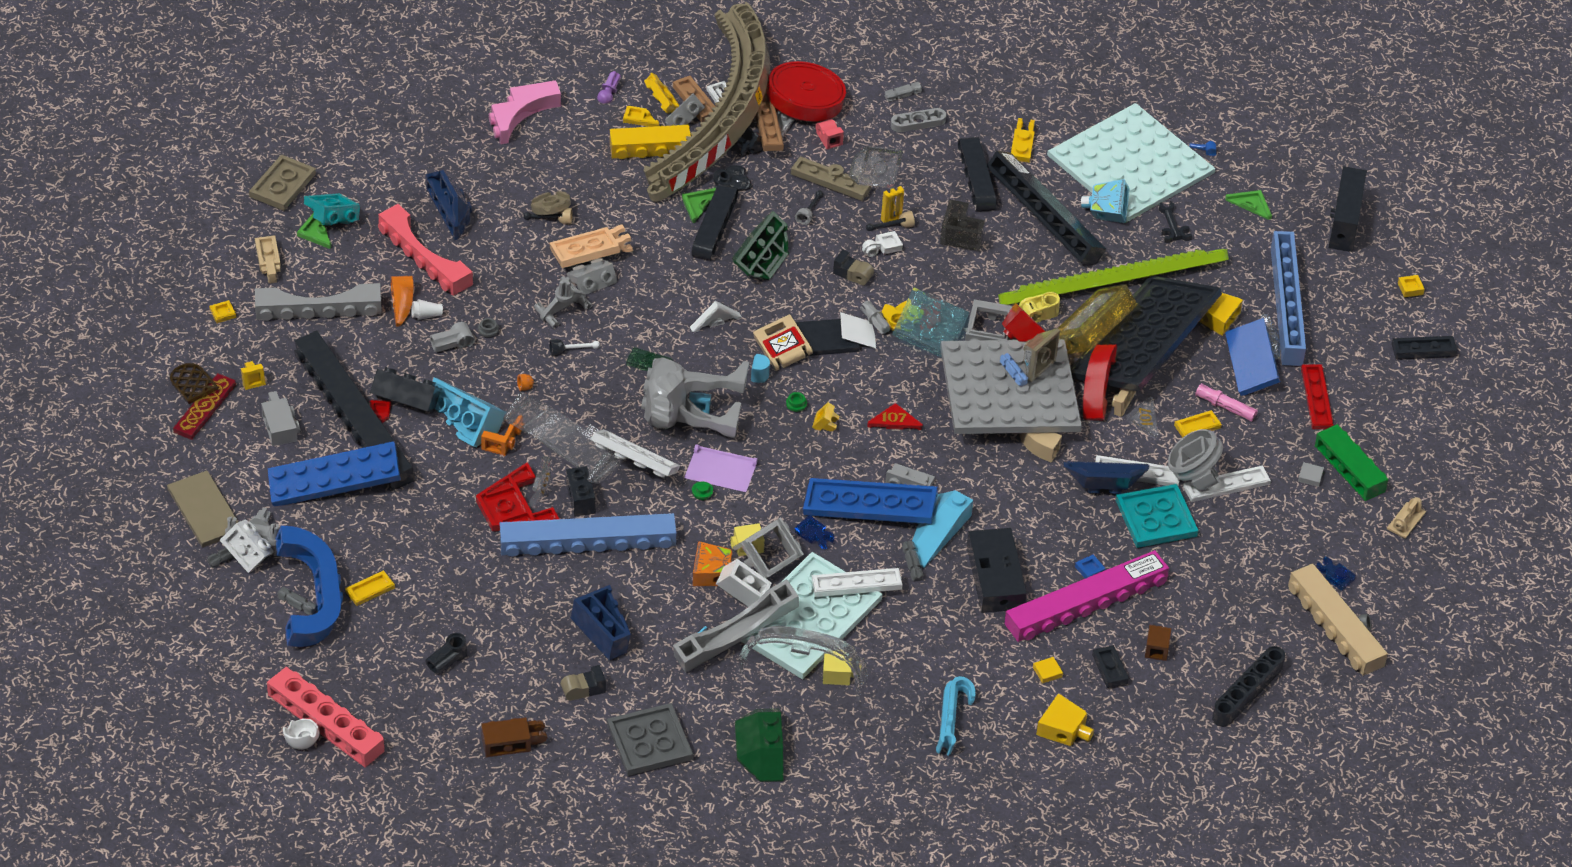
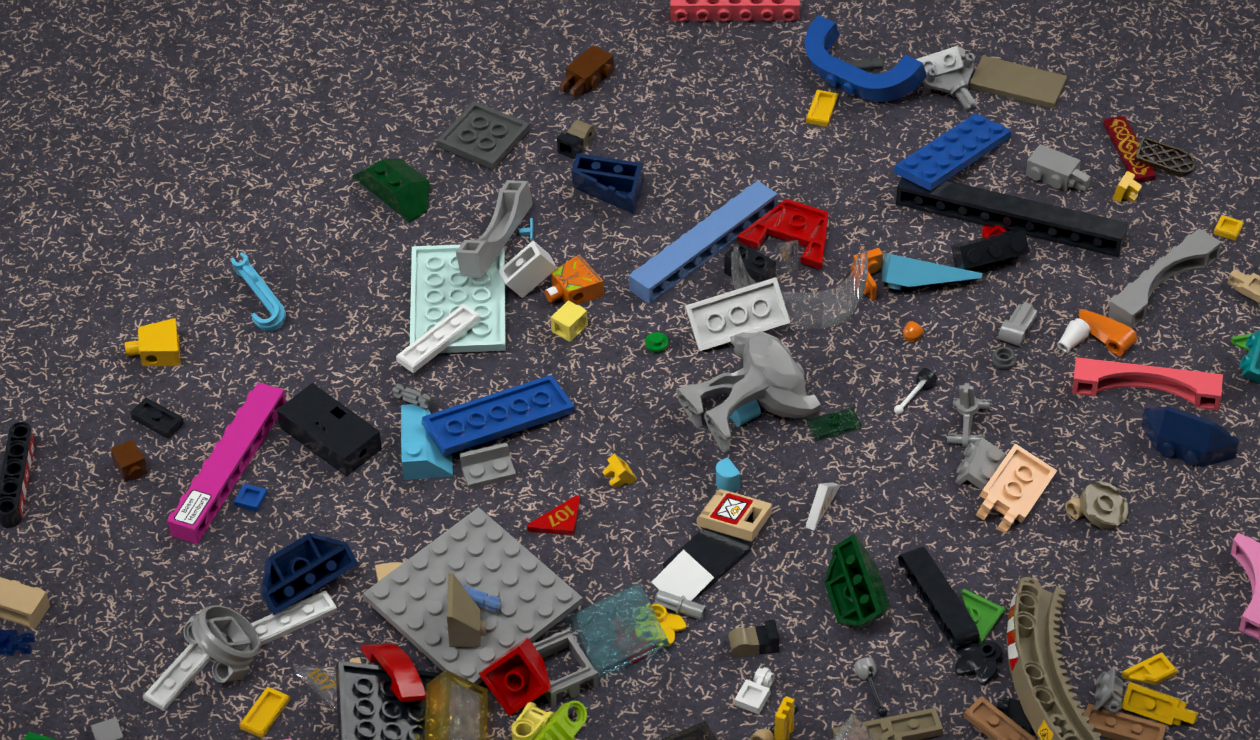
camera: 145 degrees right, 0 degrees up
(453, 650) = (702, 96): black piece -> none
(605, 96) = (1218, 677): medium lavender axle -> none
(646, 141) = (1102, 638): yellow brick -> none
(721, 468) = (664, 376): lavender piece -> none
(783, 533) = (531, 328): light grey window -> none
(796, 402) = (663, 473): green plate -> none
(805, 640) = (403, 216): clear piece -> none
(813, 530) = (524, 367): clear blue plate -> none
(836, 671) = (387, 268): light yellow brick -> none
(1047, 670) = (211, 385): yellow tile -> none
(1156, 515) = (224, 579): teal plate -> none

